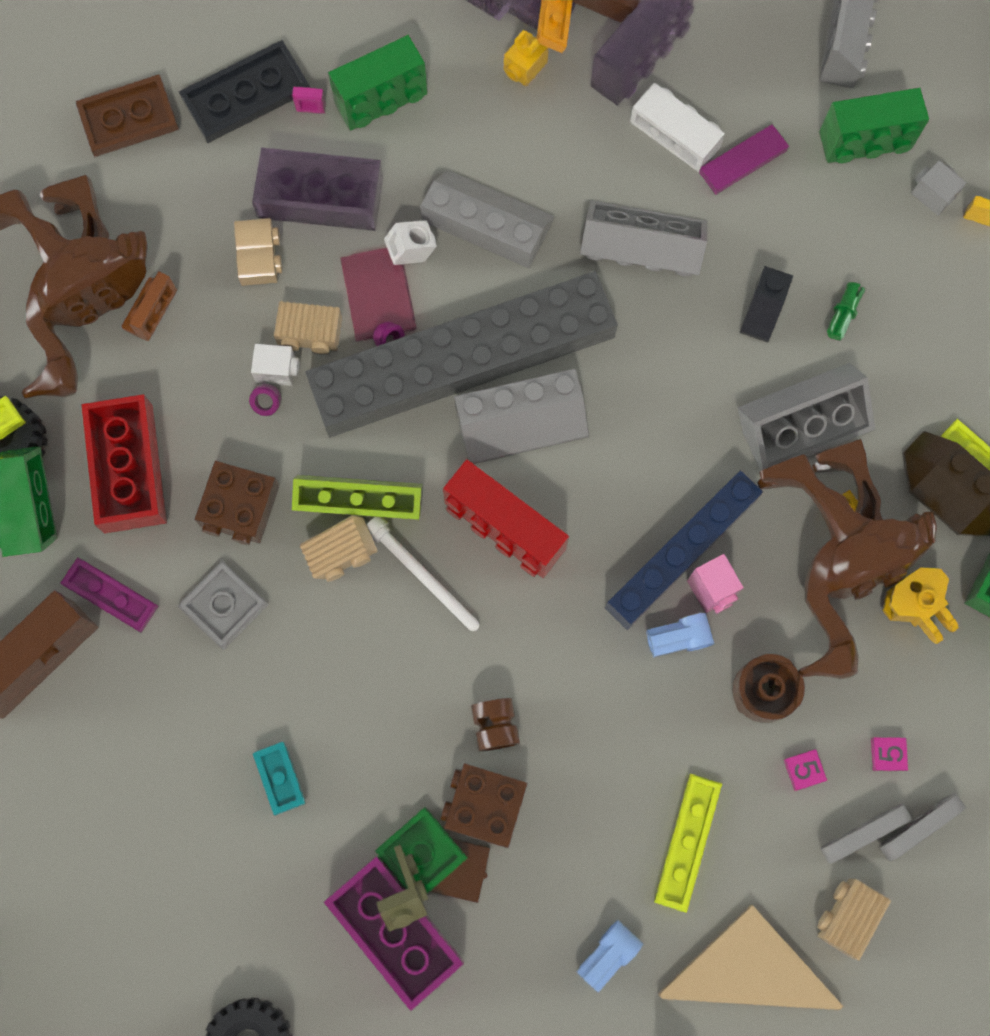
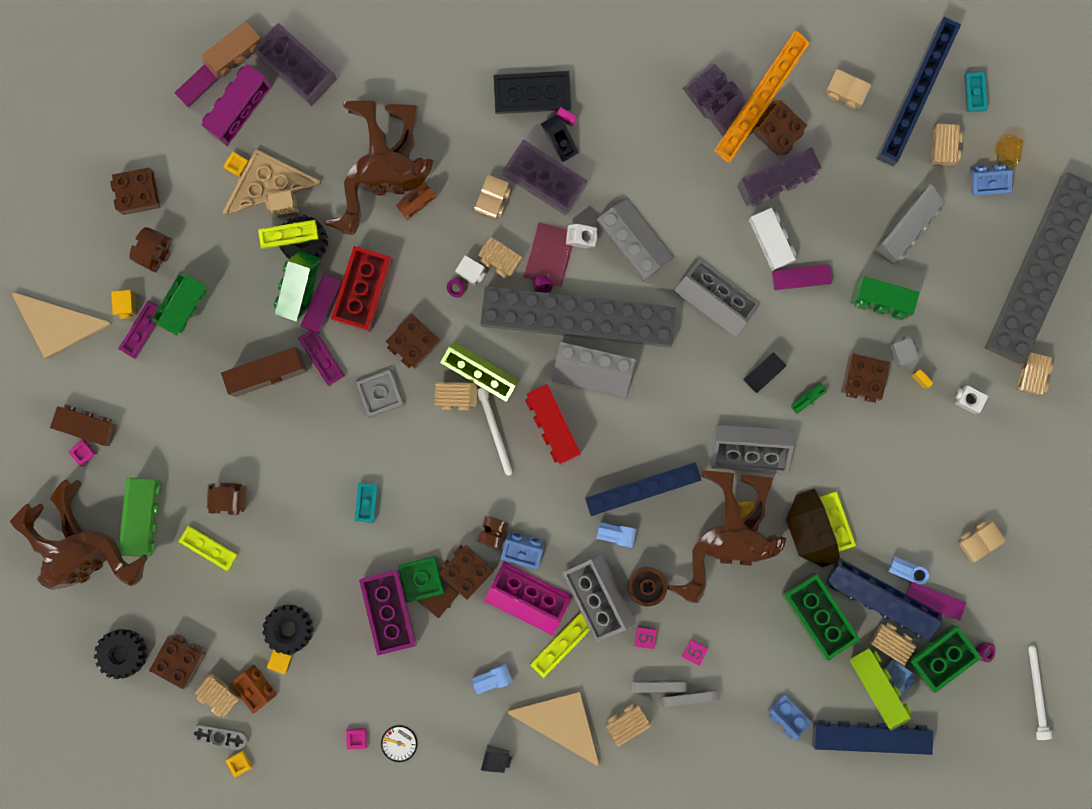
camera: 35 degrees right, 10 degrees up
(53, 878) = (226, 497): none -> reddish brown brick
(60, 977) = (208, 548): none -> neon yellow tile
(73, 517) = (321, 304): none -> magenta tile
(126, 115) = (457, 74): reddish brown plate -> none
(312, 129) = (559, 138): none -> black slope
(379, 83) = (611, 129): green brick -> none
(406, 905) = (401, 603): olive bracket -> none
(525, 58) = (704, 152): yellow brick -> none
(554, 730) = (523, 550): none -> medium blue bracket
(600, 800) = (528, 598): none -> dark pink slope
(706, 744) = (599, 598): none -> light grey slope
(715, 585) = (648, 518): bright pink brick -> none
(908, 244) = (865, 378): none -> reddish brown brick
(921, 602) = (757, 583): yellow hinge -> none

